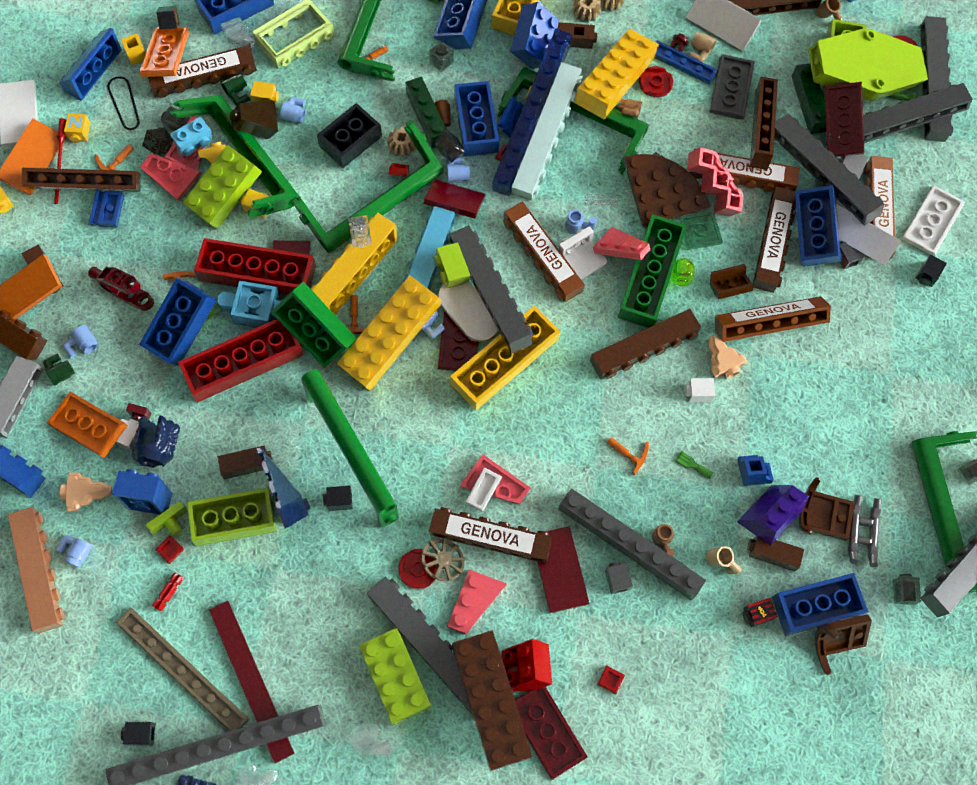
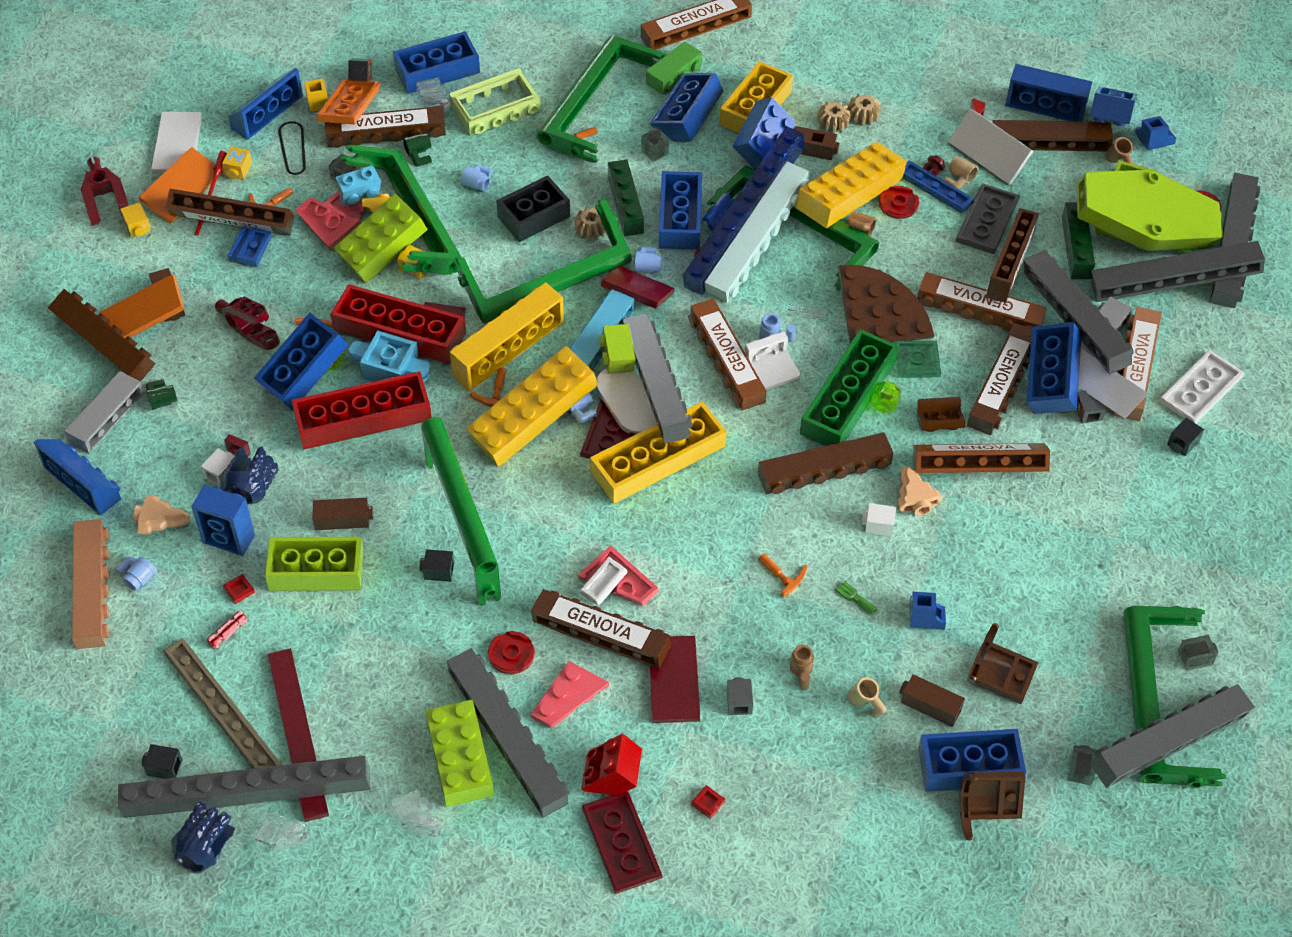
camera: 15 degrees right, 15 degrees down
(83, 338) = (194, 366): light blue piece -> none
(87, 424) = (179, 449): orange tile -> none
(157, 141) = (321, 186): clear smoke brick -> none
(168, 520) = (244, 557): lime tile -> none
(255, 118) = (432, 177): dark brown slope -> none
(263, 91) = (447, 157): yellow brick -> none
(288, 500) = (380, 551): dark blue slope -> none
(313, 324) = (448, 382): green brick -> none
(359, 231) = (520, 295): clear slope -> none
(399, 169) = (581, 250): red tile -> none
(442, 559) = (541, 645): dark tan wheel -> none
(444, 110) = (646, 199): dark orange cone -> none
(449, 145) = (642, 232): clear smoke brick -> none
(491, 701) = (561, 787): reddish brown brick -> none
(621, 245) = (816, 355): coral wing -> none
(632, 544) = (763, 664): dark grey brick -> none
(716, 181) = (942, 306): coral brick -> none
(759, 612) = (898, 759): brick -> none
(774, 512) = (939, 655): dark purple slope -> none
(844, 119) = (1108, 261): dark red tile -> none
(873, 522) = (1058, 691): flat silver piece -> none

